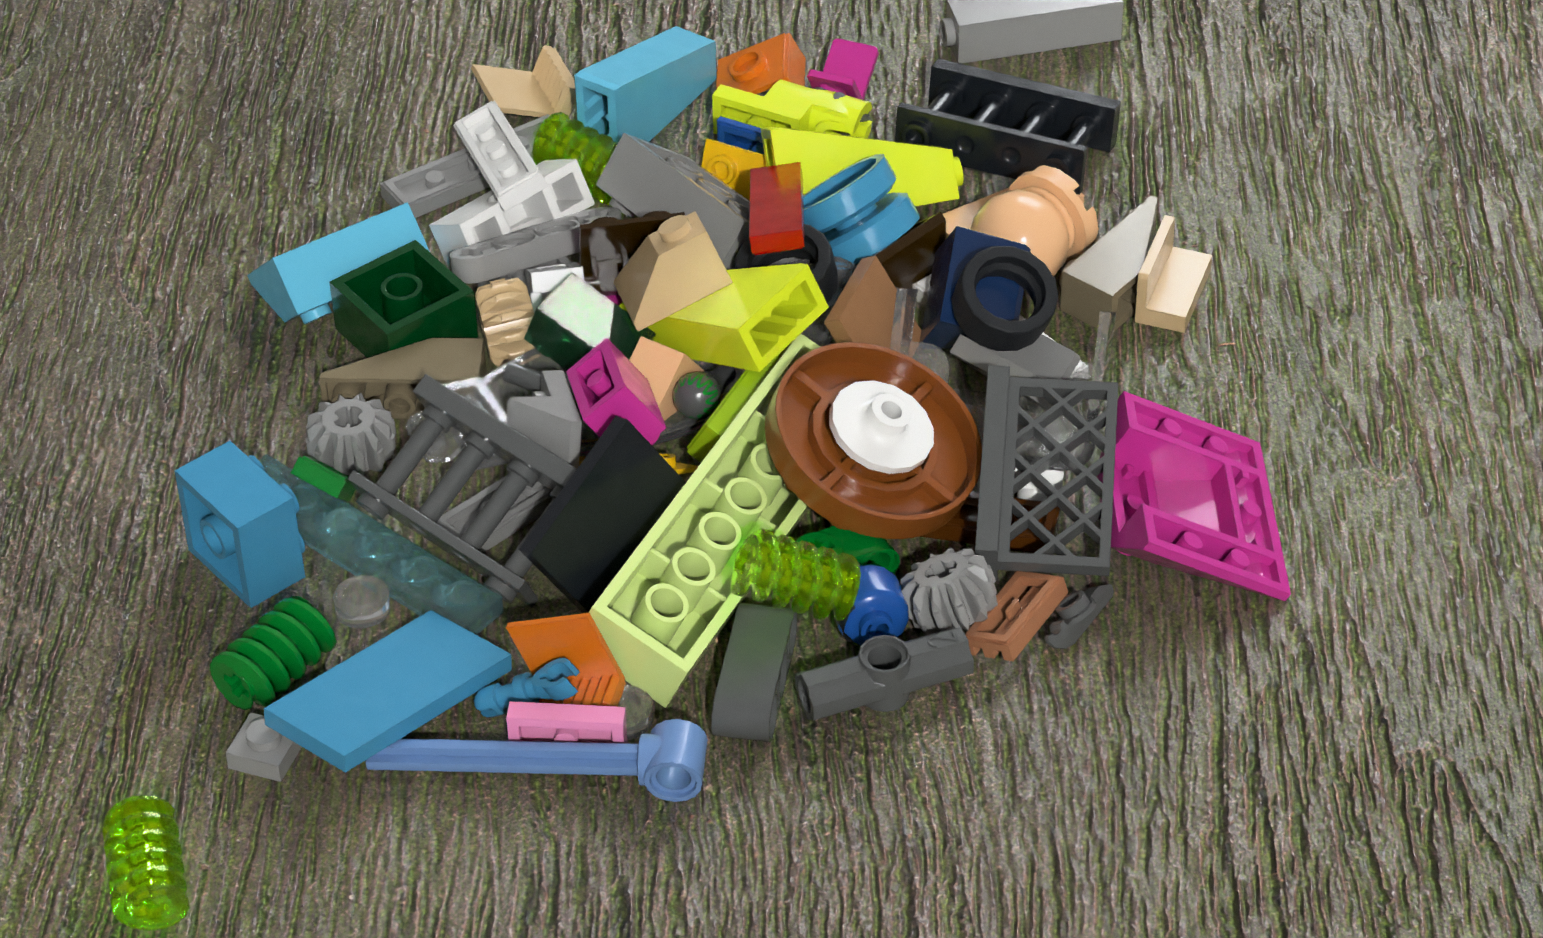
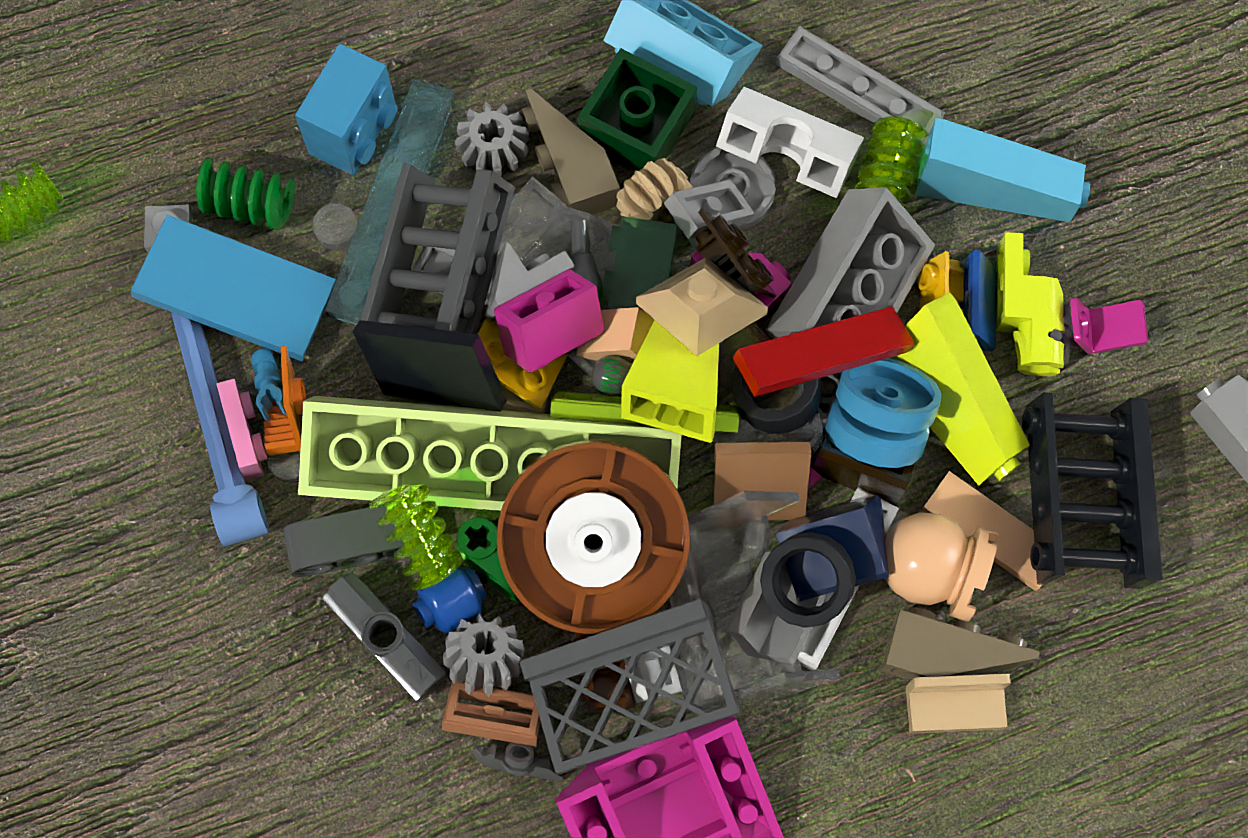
camera: 65 degrees right, 30 degrees up
(323, 477) = (434, 143): green tile -> none
(500, 155) = (841, 102): white tile -> none
(524, 247) = (752, 182): light grey beam -> none
(530, 93) = (966, 80): tan piece -> none
(763, 65) = (1083, 257): orange piece -> none

